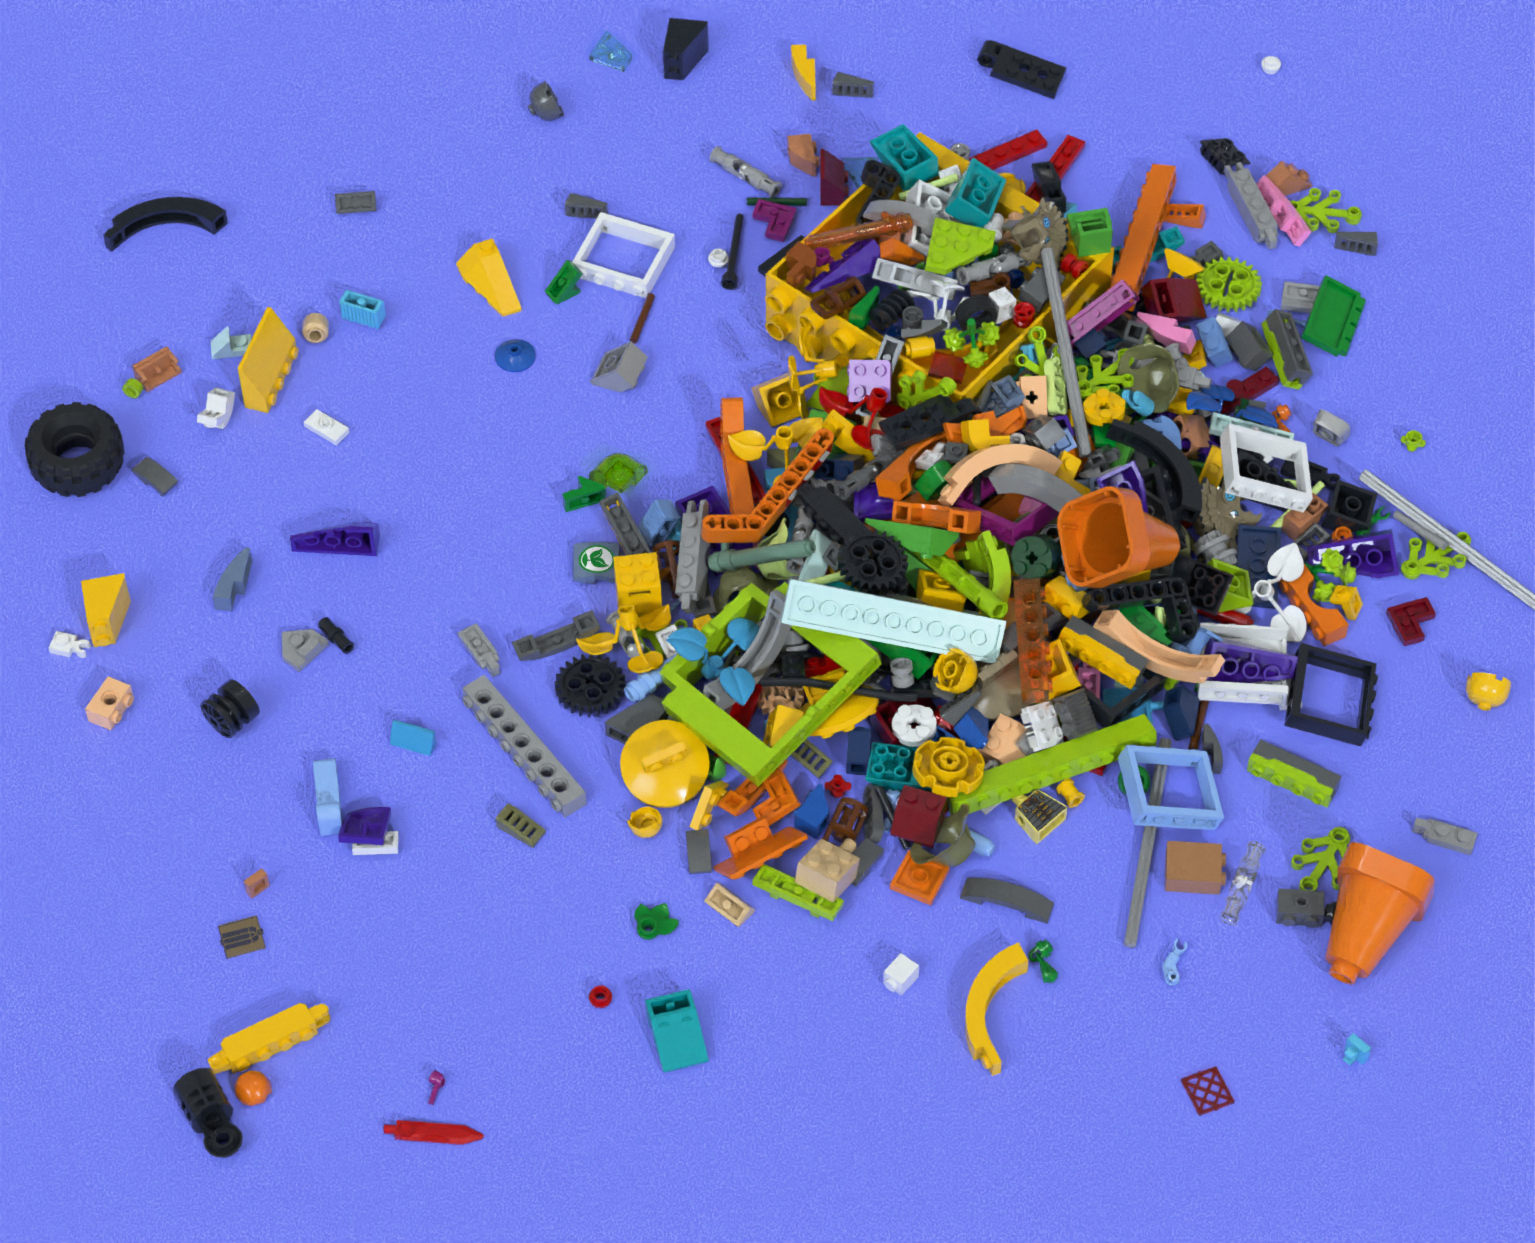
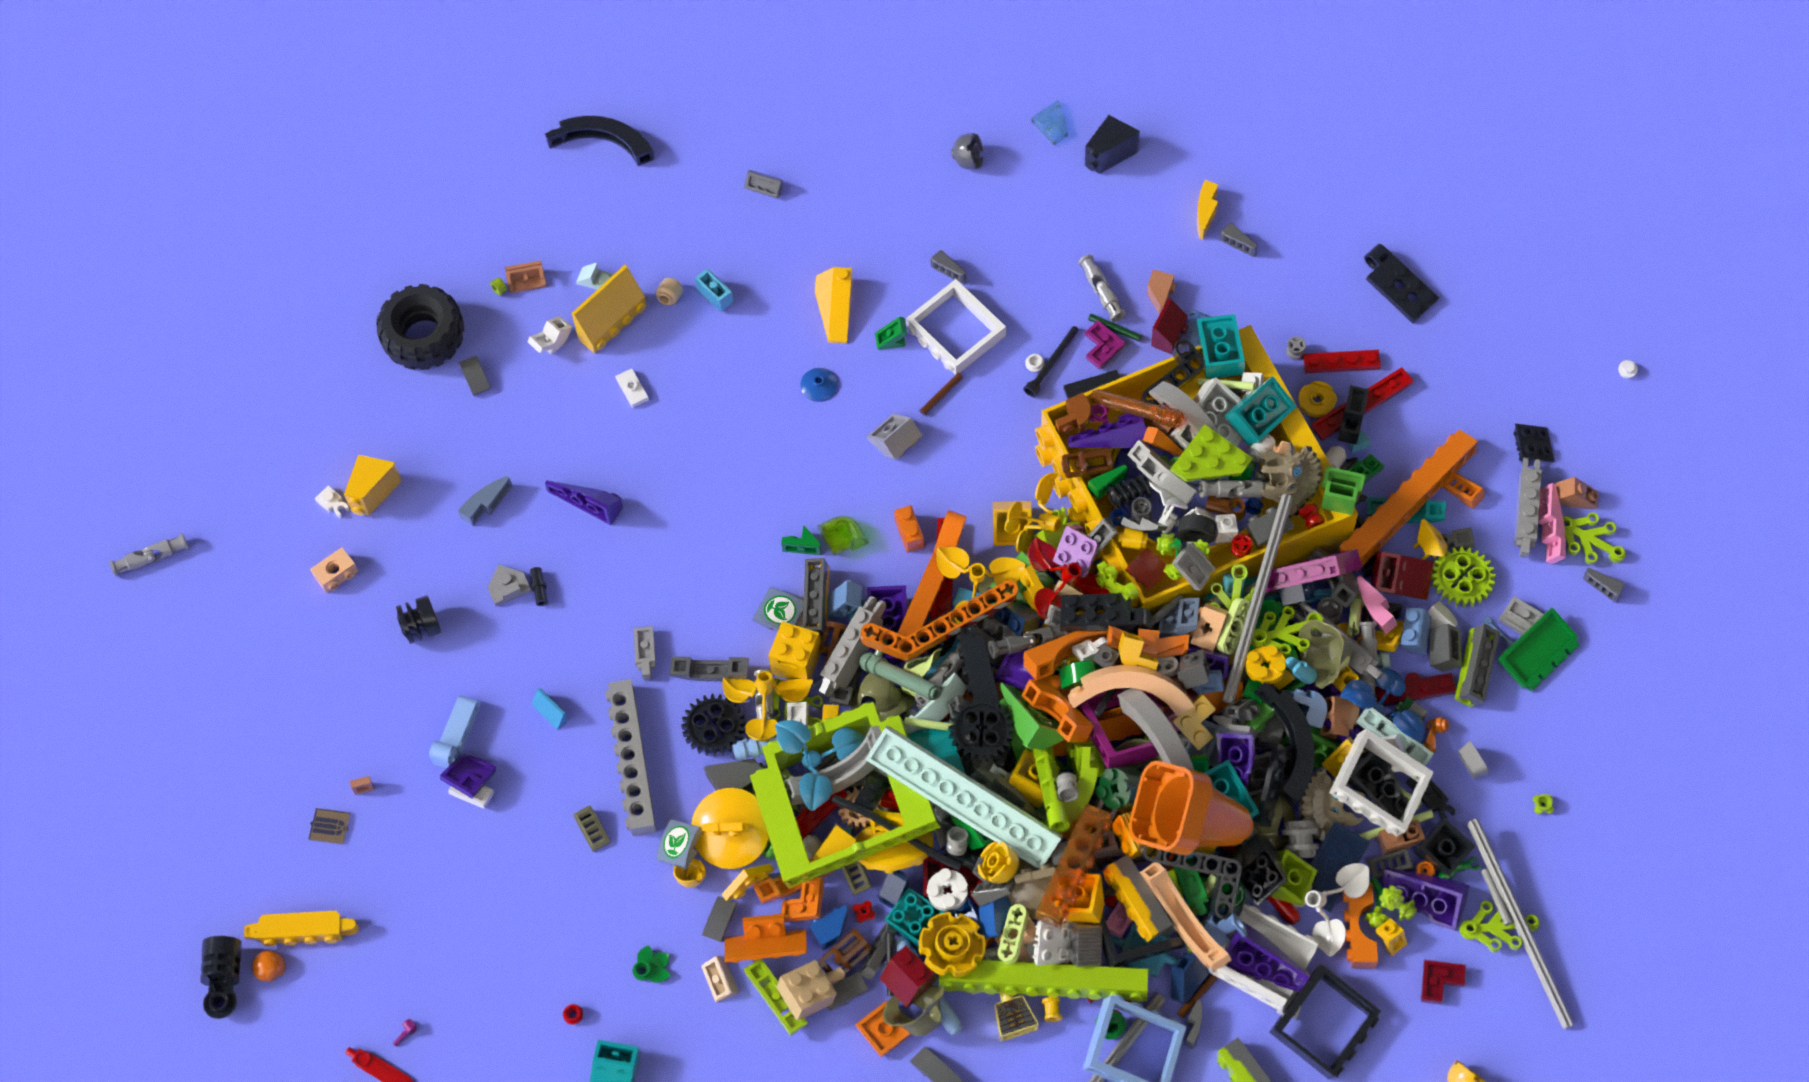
camera: 30 degrees right, 10 degrees up
(619, 799) = (678, 844): none -> slope
(682, 441) = (909, 528): none -> orange brick
(986, 574) = (1067, 787): none -> light grey wheel
(993, 343) = (1193, 566): none -> light grey plate
(1007, 740) = (1022, 921): none -> yellowish green beam

